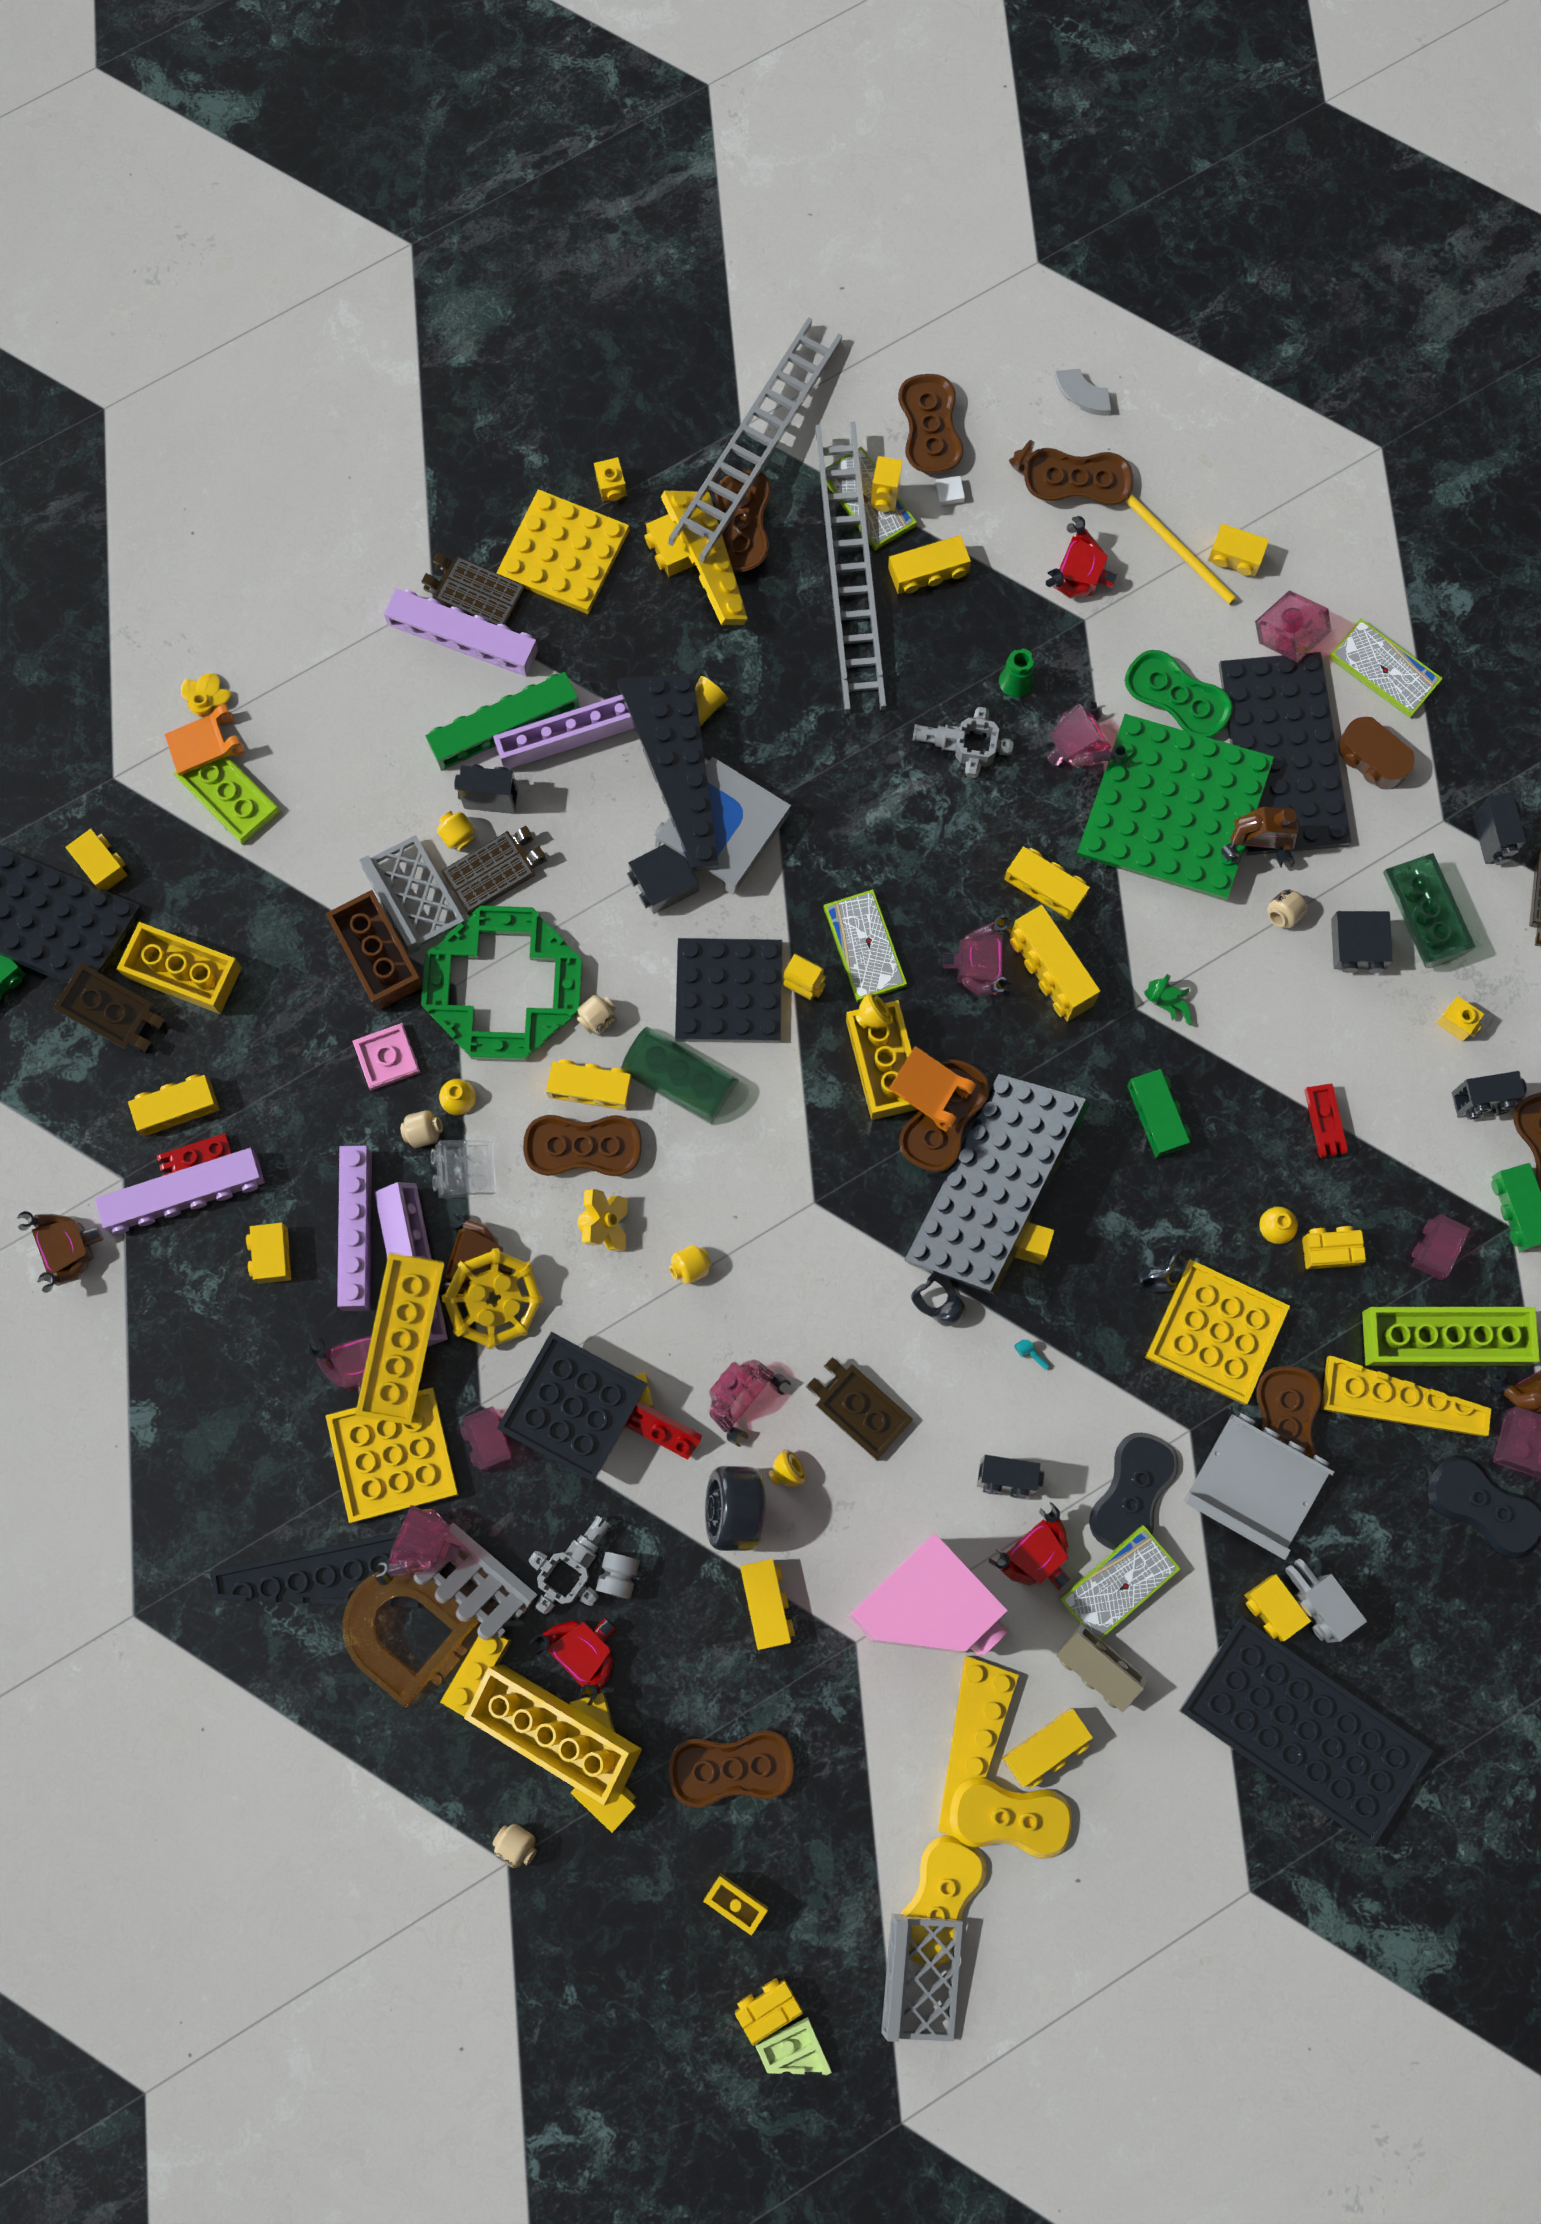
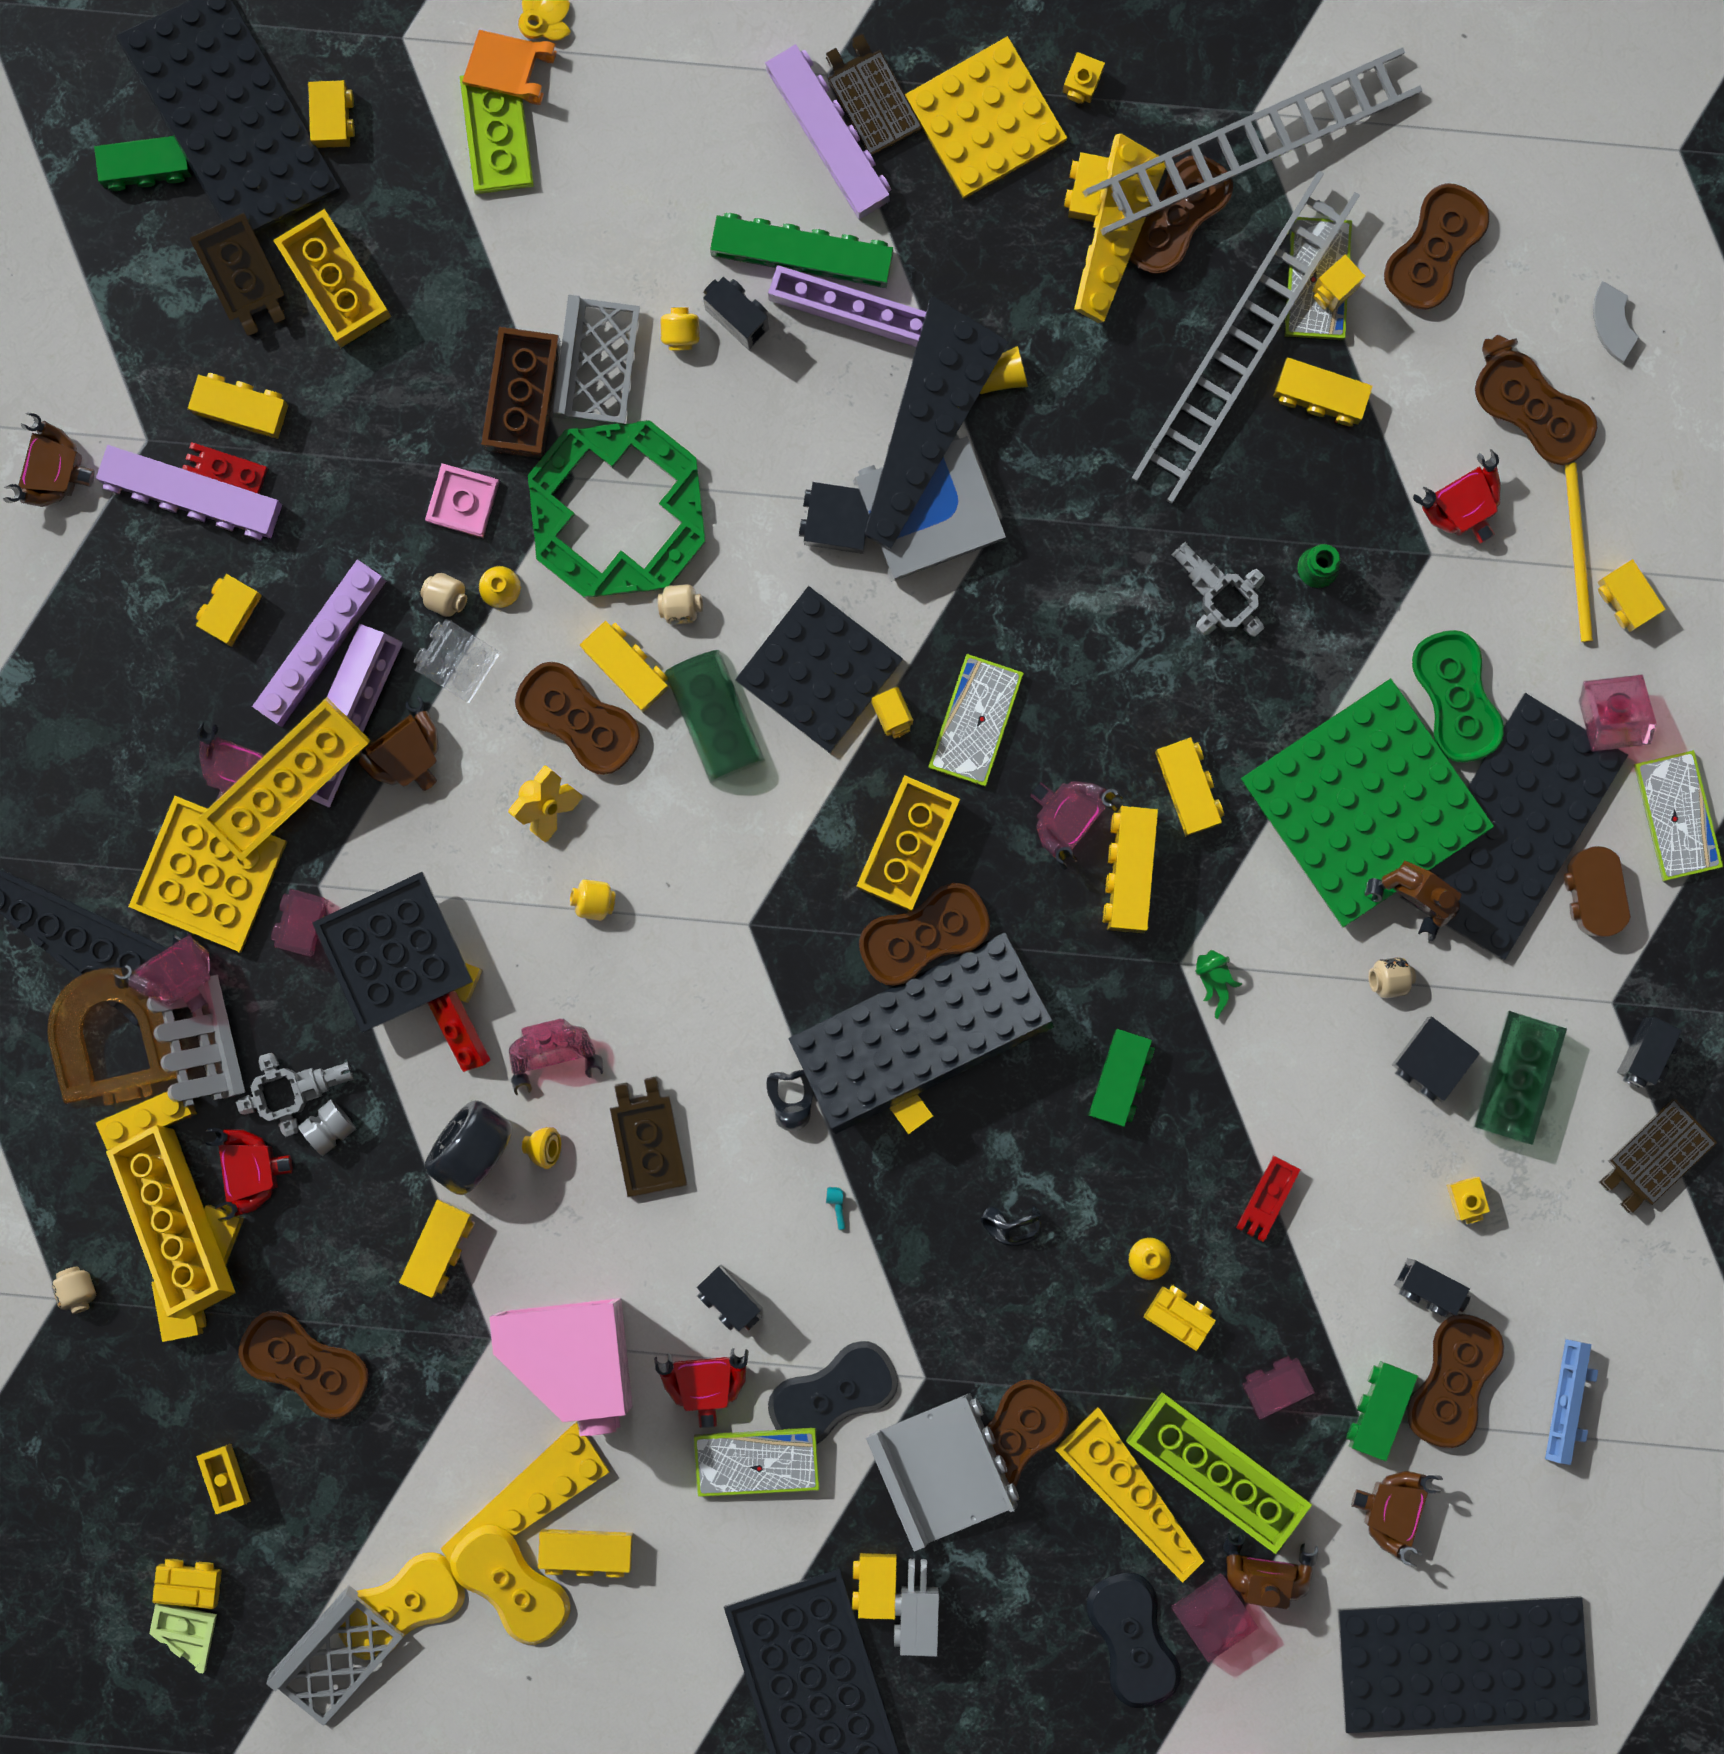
camera: 40 degrees right, 10 degrees up
(478, 1292) = (397, 817): yellow plate -> none
(493, 869) = (687, 392): dark brown tile -> none
(873, 1012) = (926, 795): yellow brick -> none
(929, 1086) = (926, 899): orange flag -> none
(950, 490) = (1403, 328): white tile -> none
(1082, 740) = (1327, 674): clear pink torso -> none
(1101, 1668) = (684, 1520): dark tan brick -> none
(1217, 1332) = (1016, 1312): yellow plate -> none

